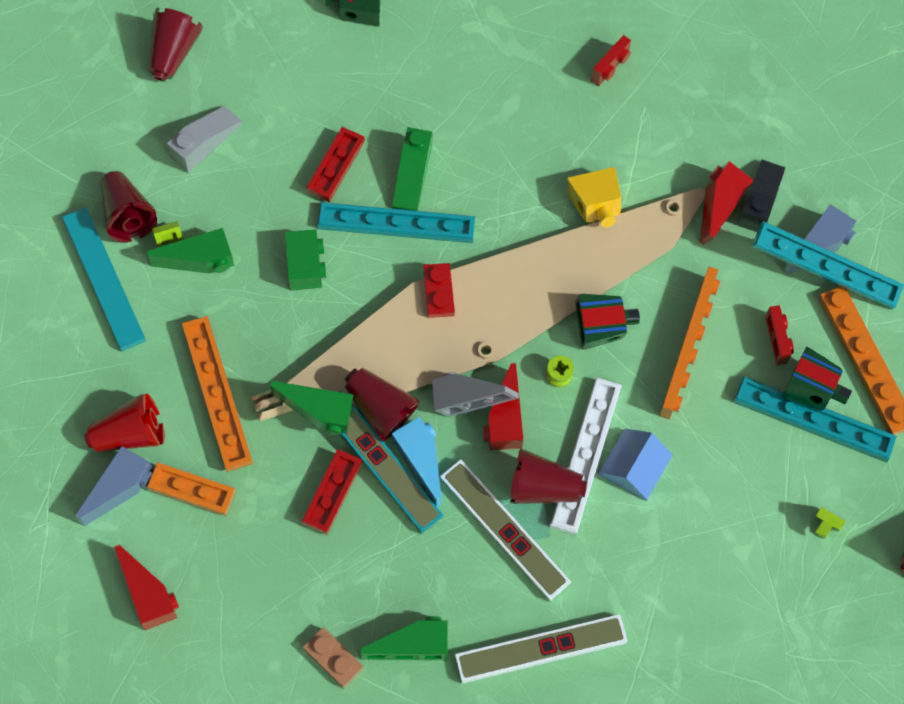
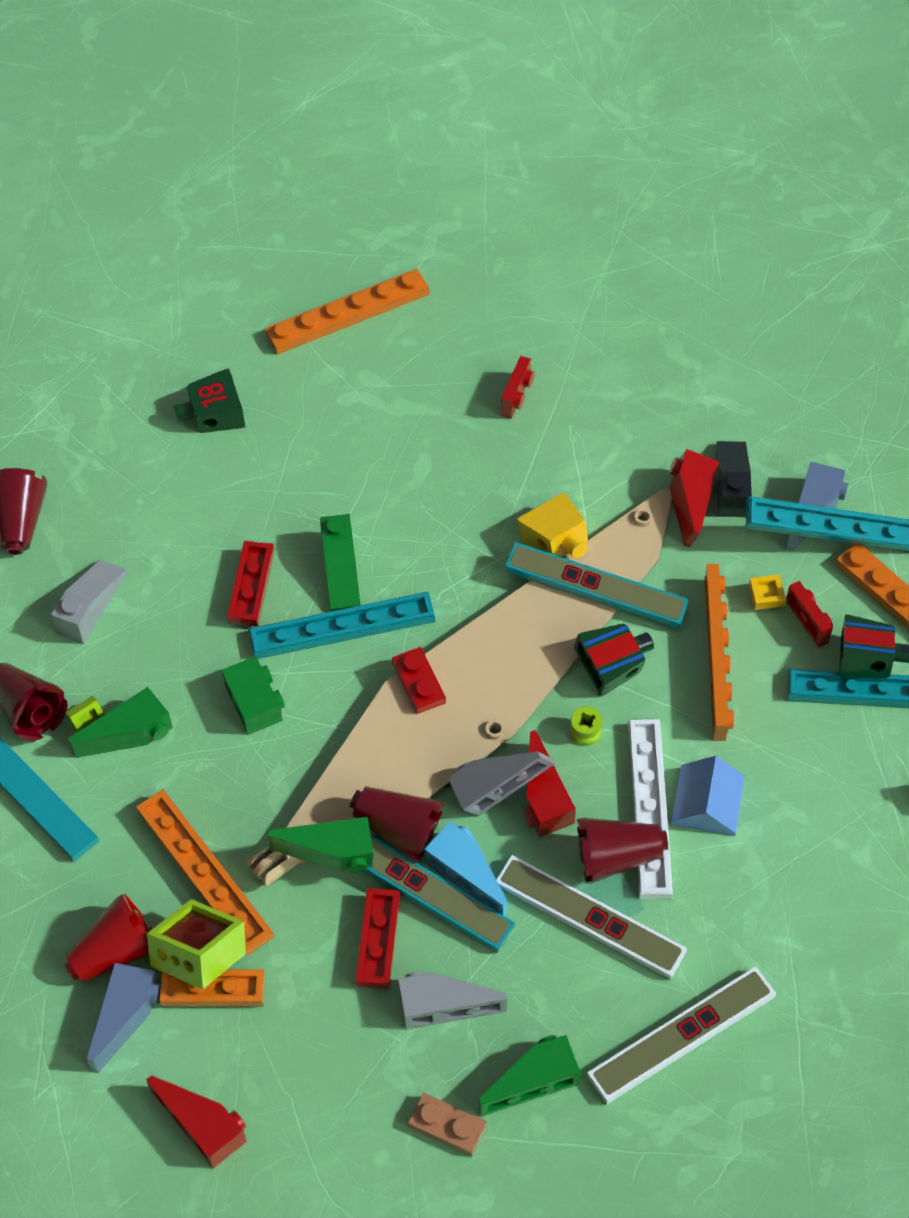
camera: 15 degrees left, 10 degrees down
(188, 452) = (196, 944): none -> lime piece
(360, 557) = (440, 999): none -> light grey slope
(613, 255) = (596, 585): none -> tile
(751, 305) = (767, 592): none -> yellow plate

